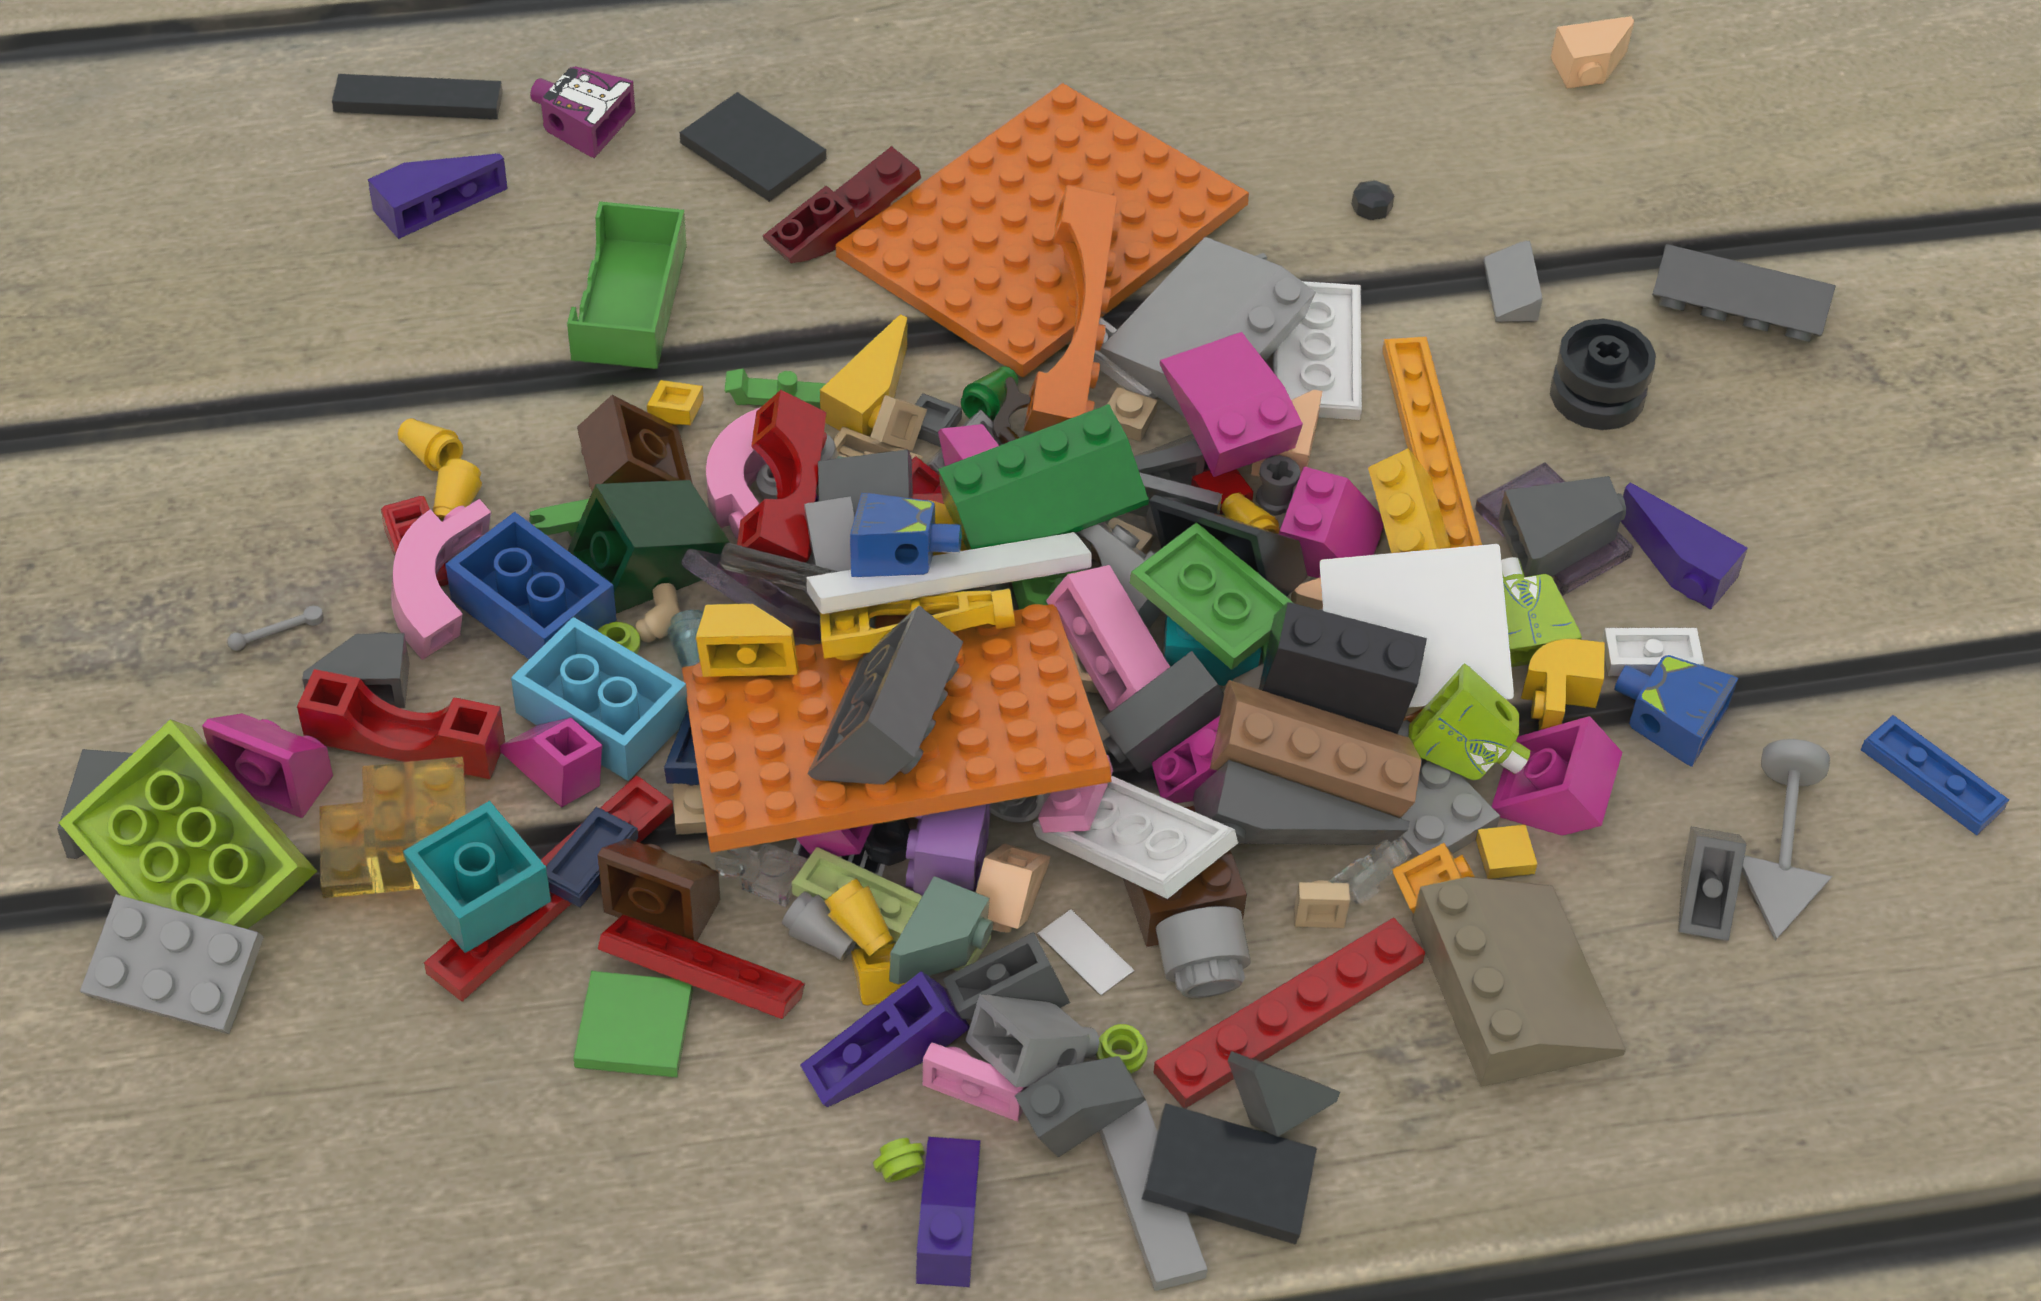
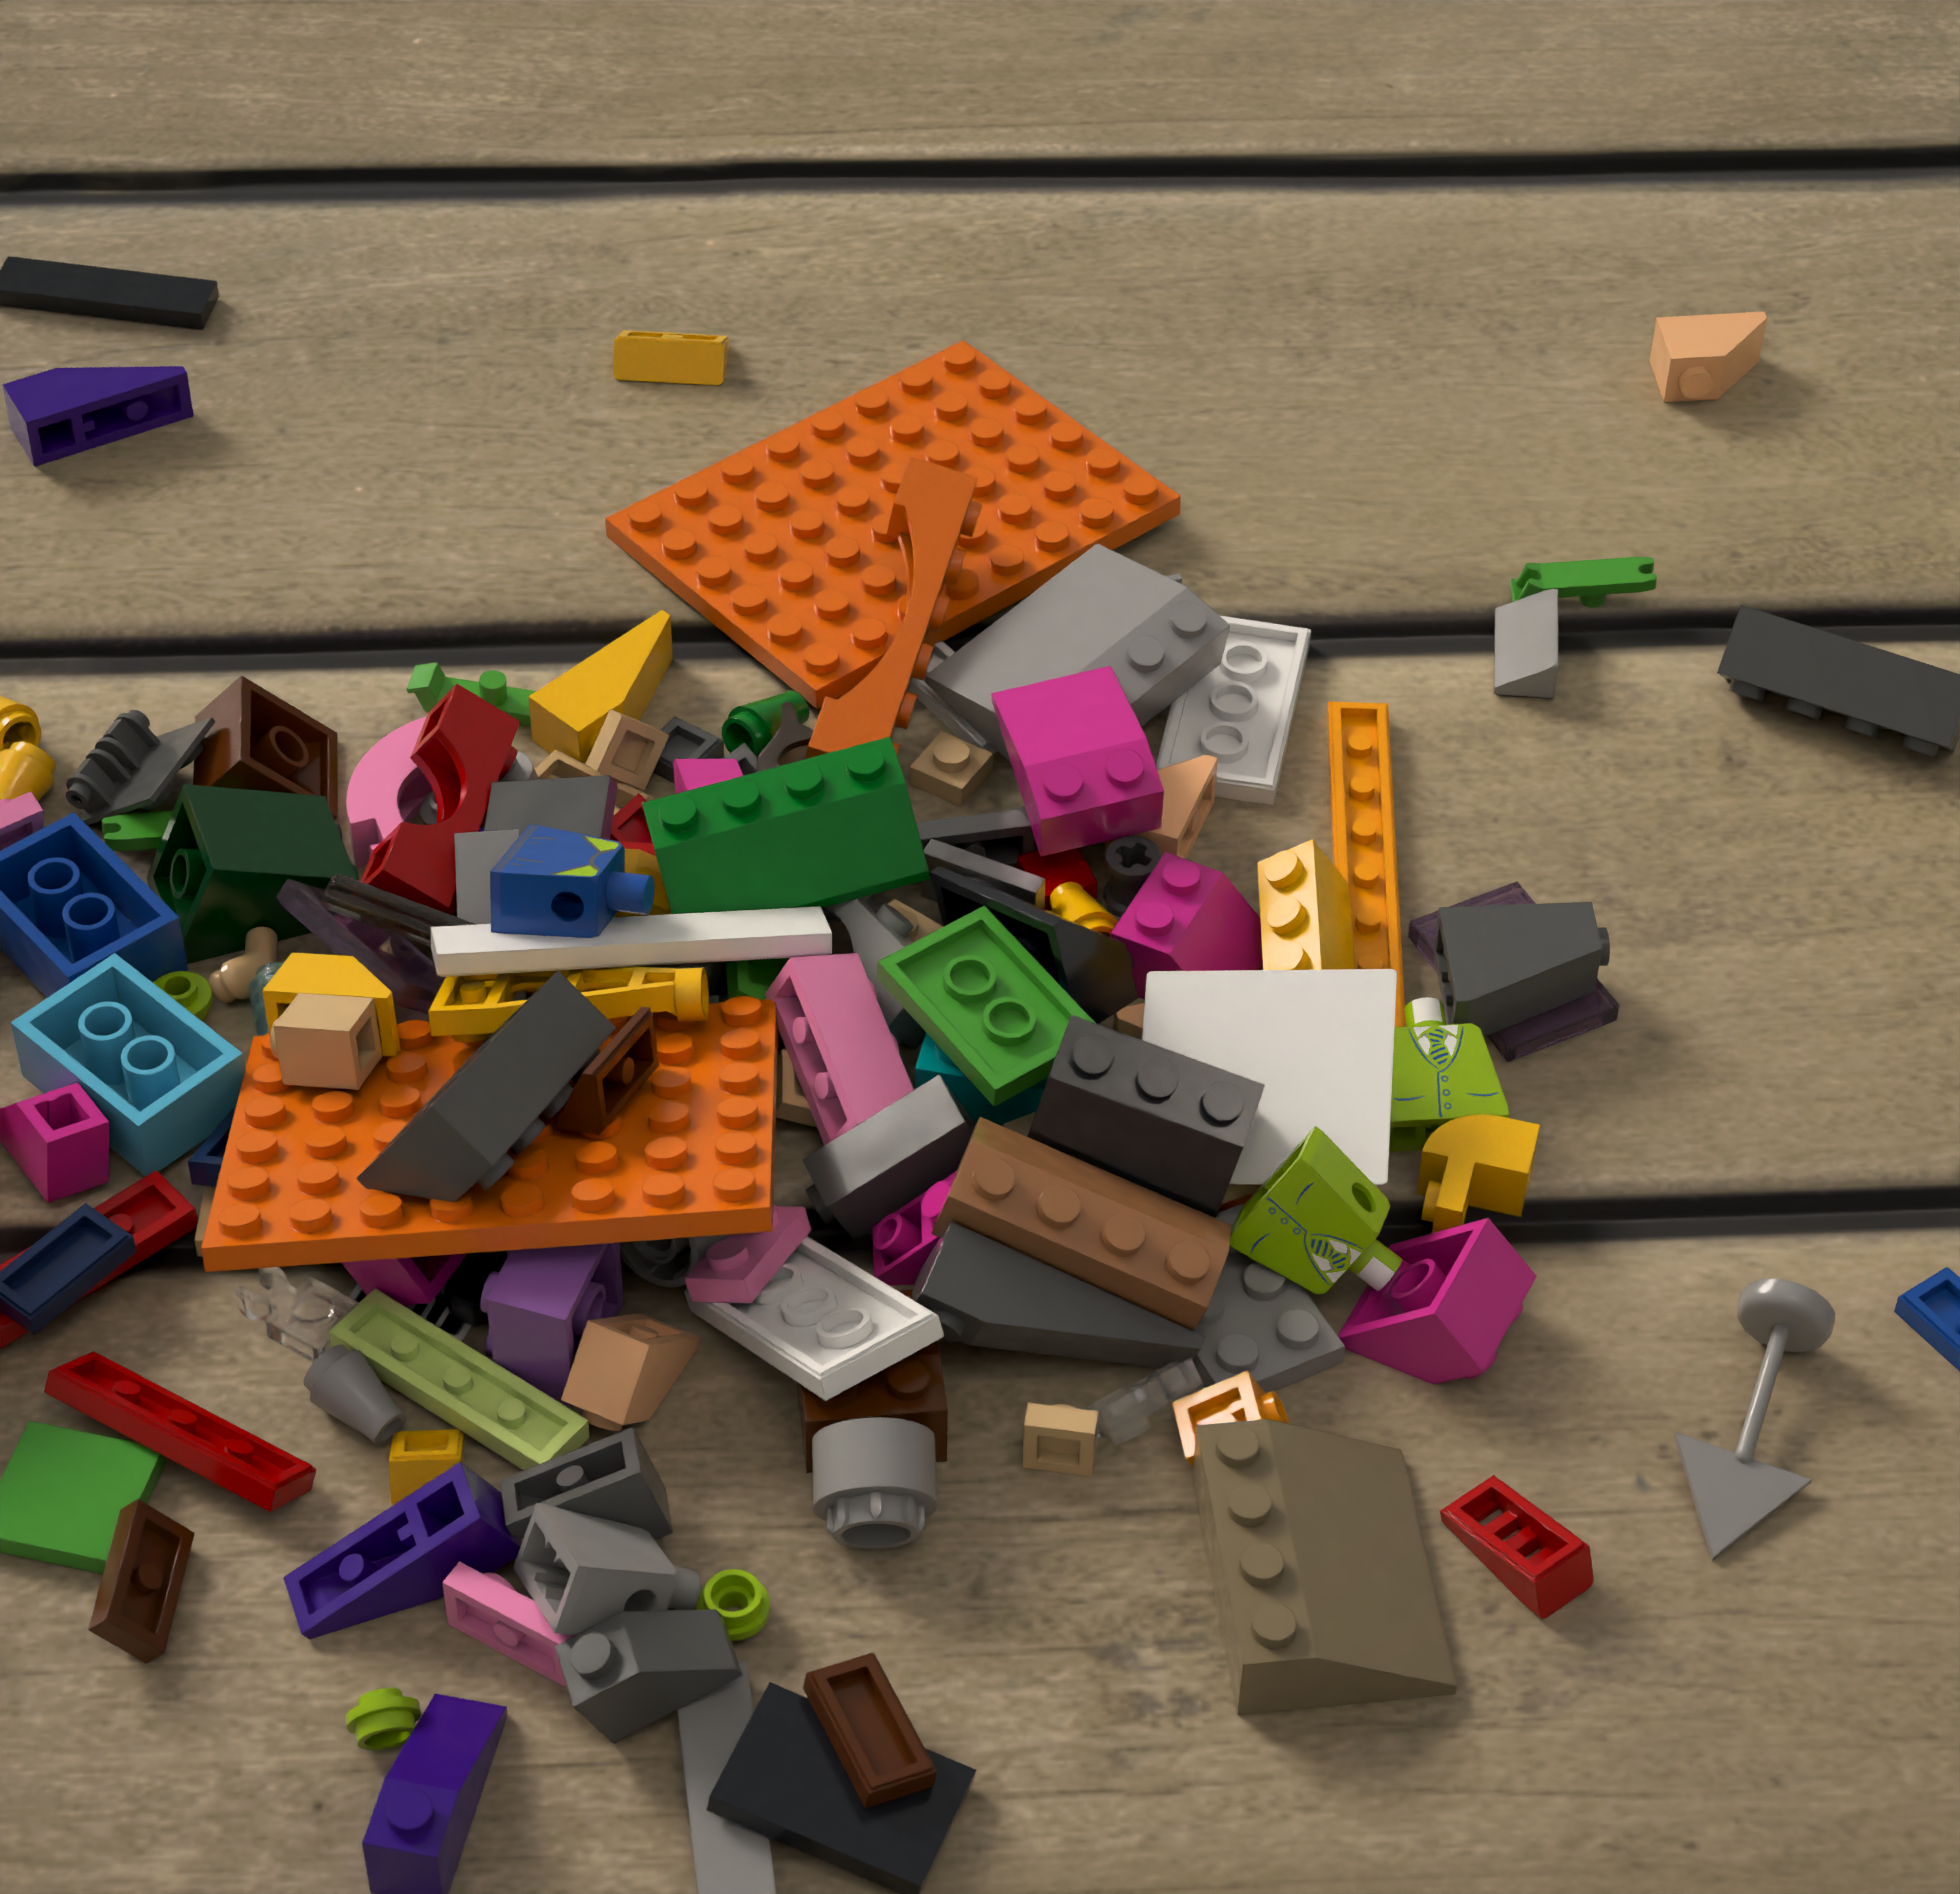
camera: 10 degrees right, 5 degrees down
(542, 470) = (132, 767): none -> dark grey hinge
(585, 107) = (317, 321): magenta torso -> none
(629, 286) = (314, 550): bright green piece -> none
(658, 887) = (143, 1318): reddish brown slope -> none
(676, 402) = (338, 698): yellow plate -> none
(704, 1080) = (141, 1581): none -> reddish brown plate
(750, 670) = (327, 1041): none -> tan brick
(753, 146) = (529, 388): black tile -> none
(835, 214) = (606, 481): dark red slope -> none
(851, 113) = (670, 357): none -> yellow slope
(859, 916) = (404, 1384): yellow cone -> none
(941, 932) = (507, 1415): sand green slope -> none
(969, 680) = (612, 1077): none -> reddish brown slope
(1085, 952) = (719, 1470): white sticker -> none
(1242, 1129) = (869, 1730): none -> reddish brown tile
(1276, 1097) = (935, 1688): dark grey slope -> none
(1289, 1011) = (990, 1577): red plate -> none
(1372, 200) = (1355, 522): black tile -> none
(1506, 851) = (1345, 1396): yellow tile -> none
(1544, 230) = (1586, 579): none -> bright green piece
(1602, 374) = (1622, 771): black wheel -> none
(1646, 646) = (1614, 1147): white plate -> none
(1669, 966) = (1545, 1579): none -> red slope
(1677, 704) = (1635, 1221): blue torso -> none
(1683, 549) = (1692, 1017): dark purple slope -> none
(1710, 882) = (1626, 1468): dark grey slope -> none

